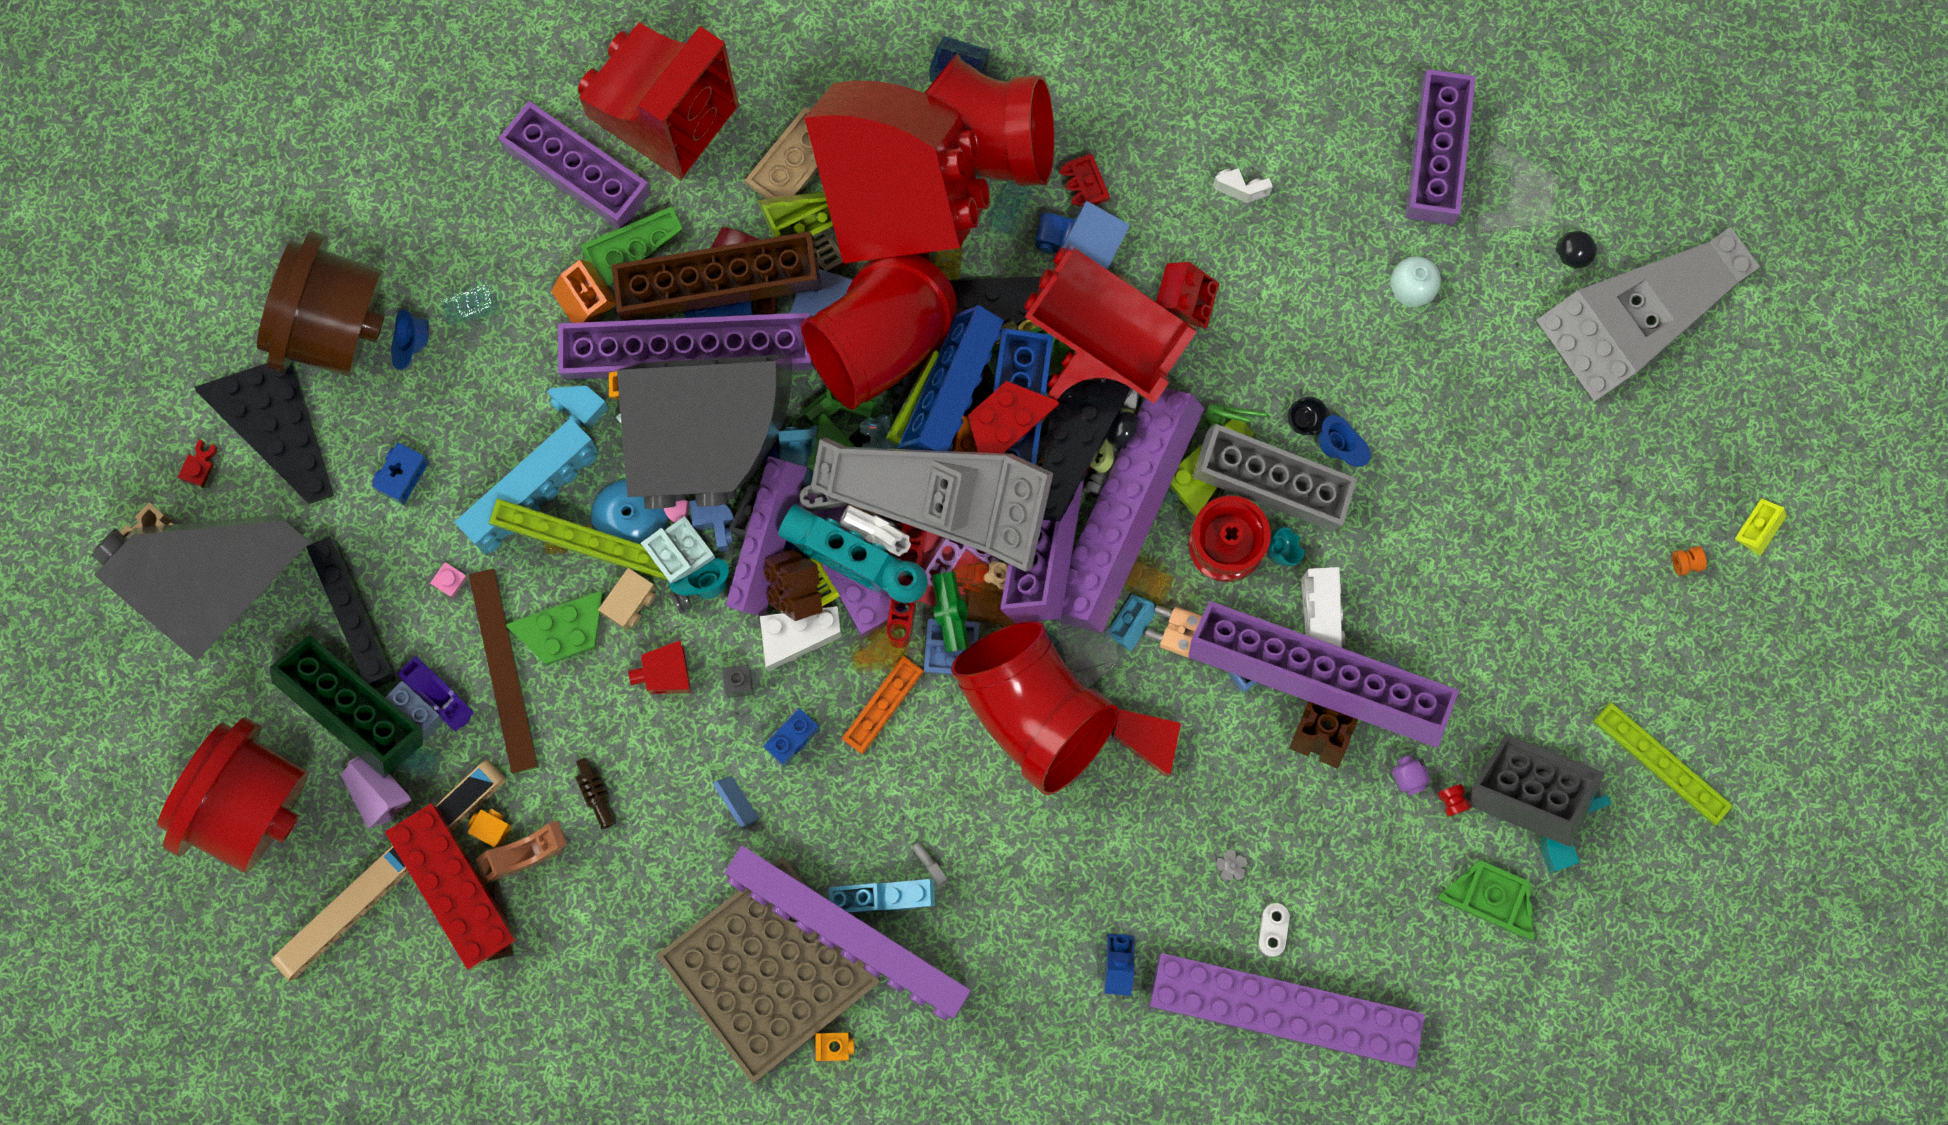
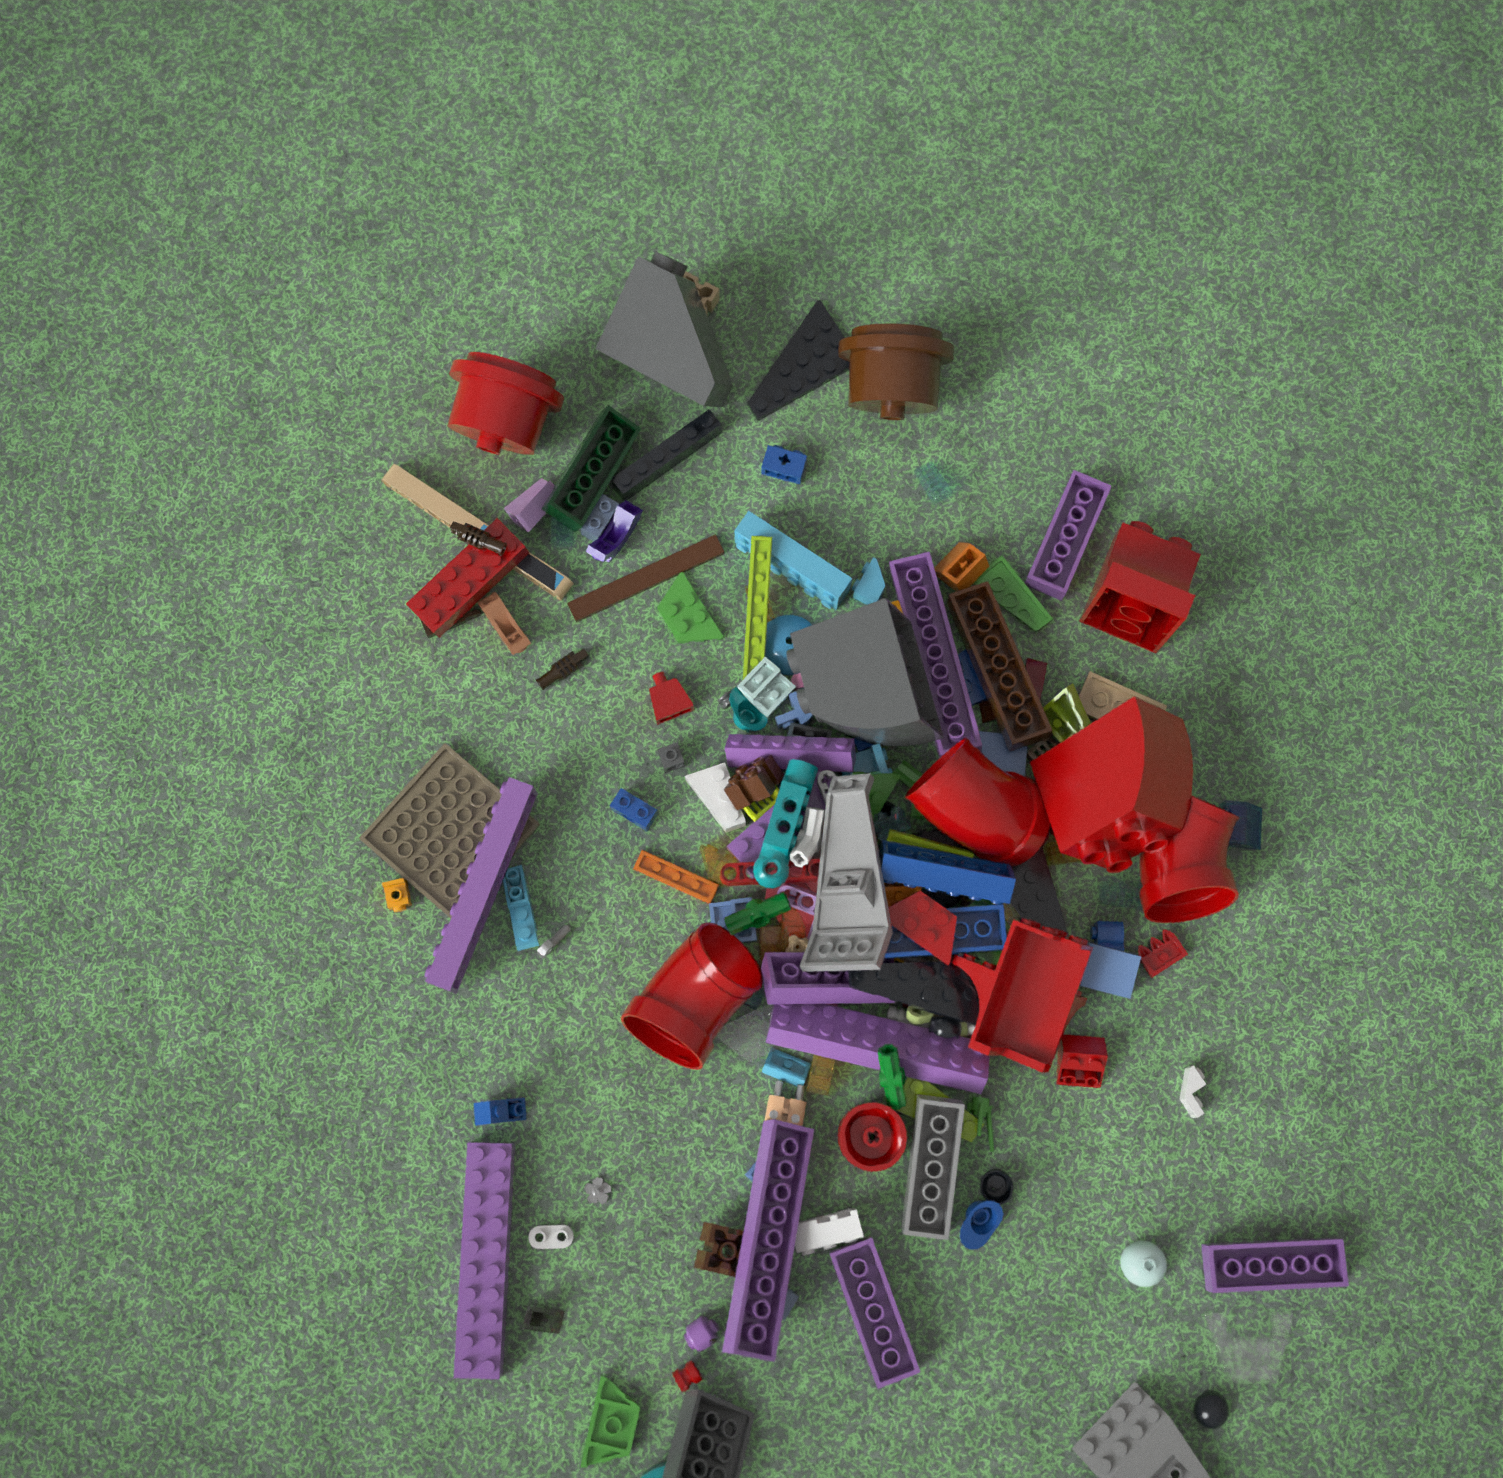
camera: 80 degrees right, 0 degrees up
(197, 468) = (757, 317): red plate -> none
(406, 859) = (477, 537): none -> dark brown hinge
(408, 338) = (894, 444): blue piece -> none
(448, 580) = (708, 521): bright pink plate -> none
(489, 827) = (520, 596): light orange brick -> none
(627, 600) = (720, 658): tan brick -> none
(736, 802) = (575, 777): medium blue slope -> none
(1148, 738) = (689, 1100): red slope -> none
(1169, 497) = (892, 1076): none -> green piece
(1285, 547) = (876, 1187): teal hair -> none
(1364, 955) = (542, 1318): none -> clear smoke slope
(1419, 577) = (874, 1312): none -> medium lavender brick

